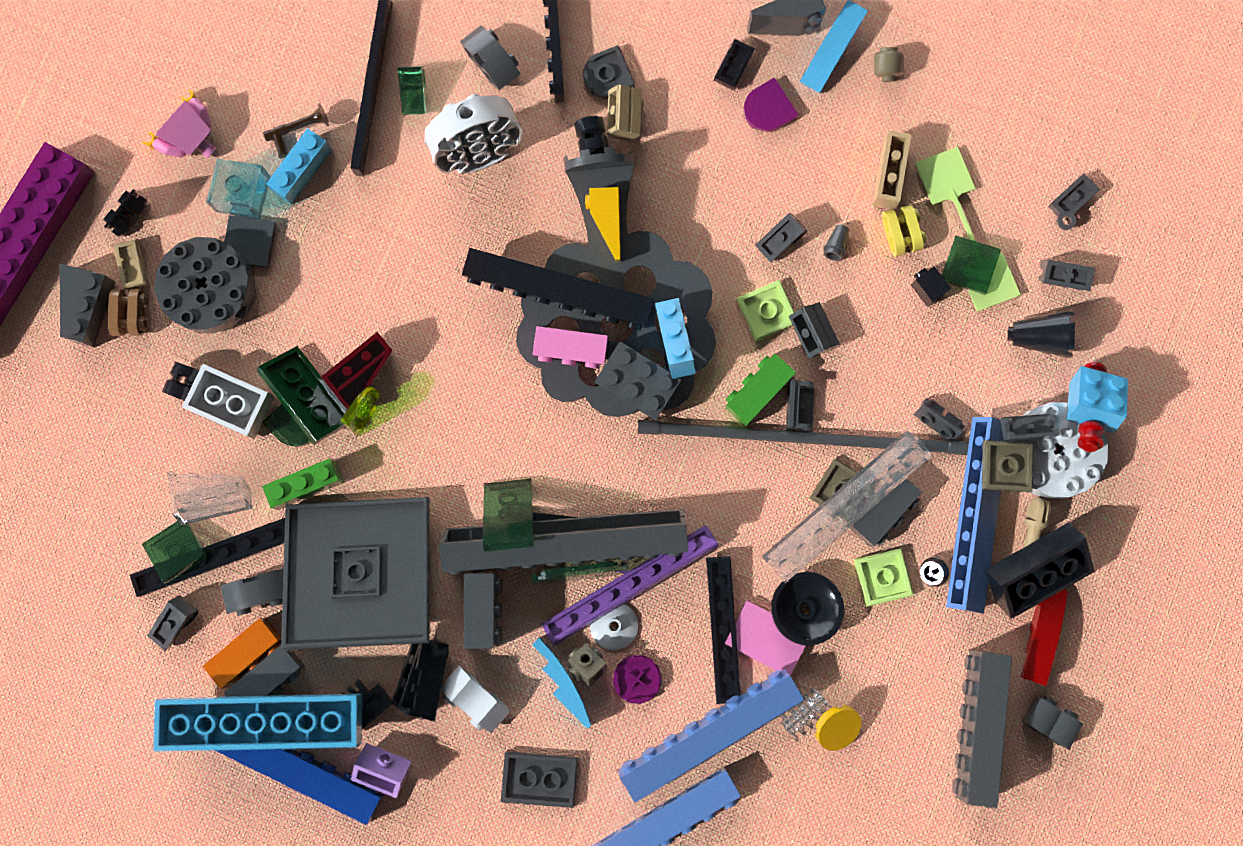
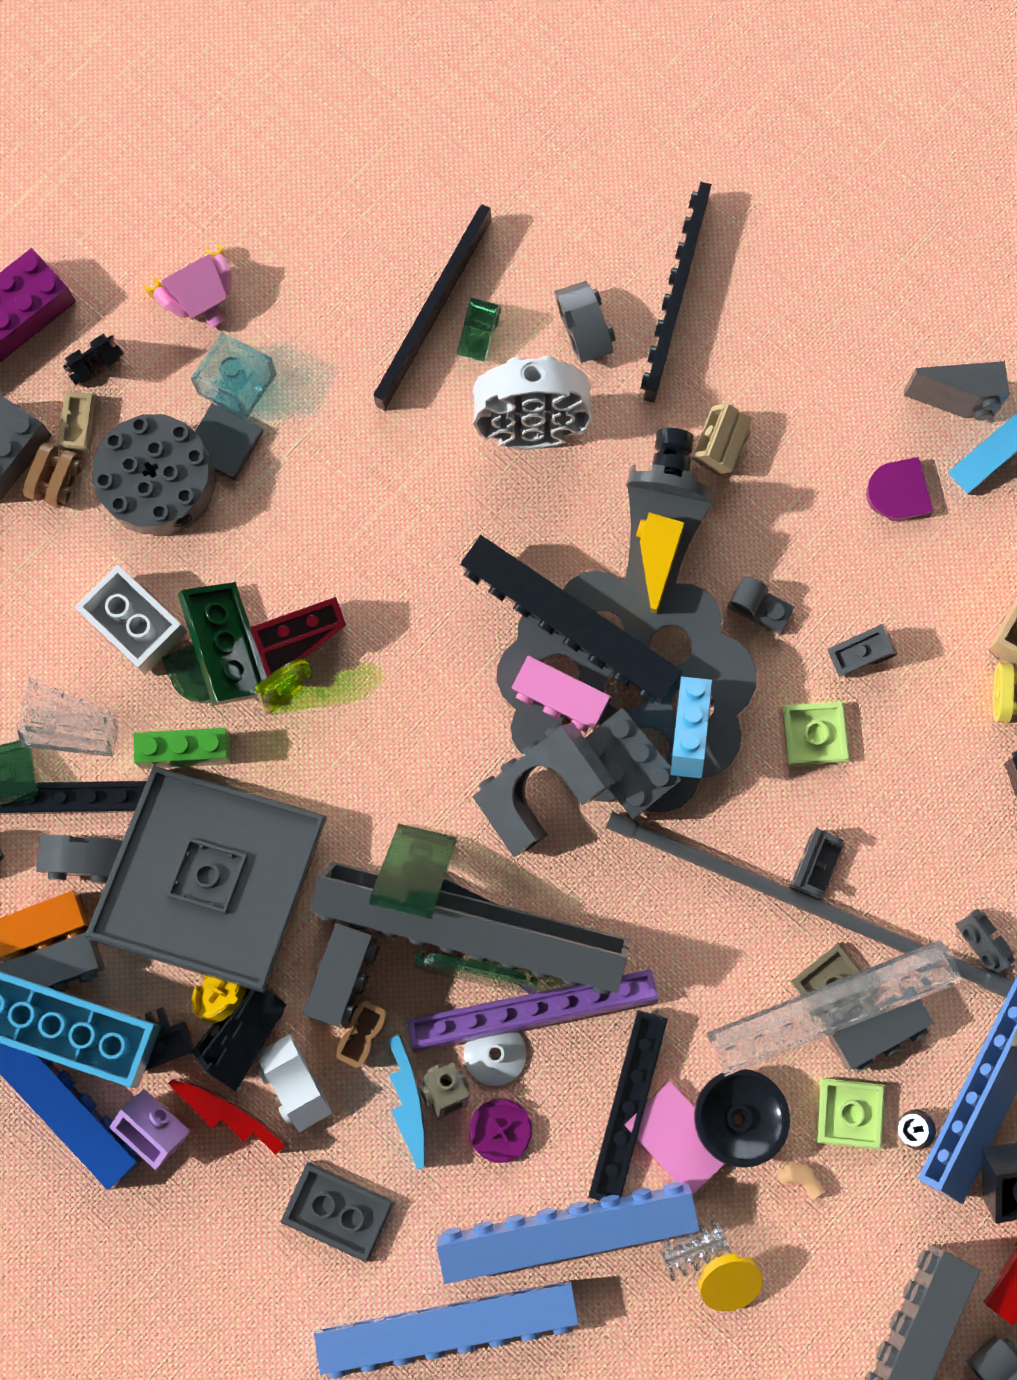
camera: 20 degrees right, 5 degrees down
(174, 387) = (74, 580): black wheel -> none
(276, 133) = (301, 326): dark brown piece -> none
(299, 166) = (314, 373): medium azure brick -> none
(395, 660) = (216, 999): none -> yellow tile
(424, 738) = (216, 1109): none -> red slope
(512, 654) = (358, 1043): none -> medium nougat brick
(555, 437) = (504, 797): none -> dark grey arch
(606, 71) = (716, 383): dark grey tile -> none
(693, 229) = (759, 606): none -> dark grey plate
(734, 64) = (874, 425): black plate -> none
(759, 389) = (773, 825): bright green brick -> none
(814, 330) = (865, 777): dark grey brick -> none
(836, 245) = (929, 681): dark grey cone -> none
(863, 633) = (803, 1176): none -> light nougat arm

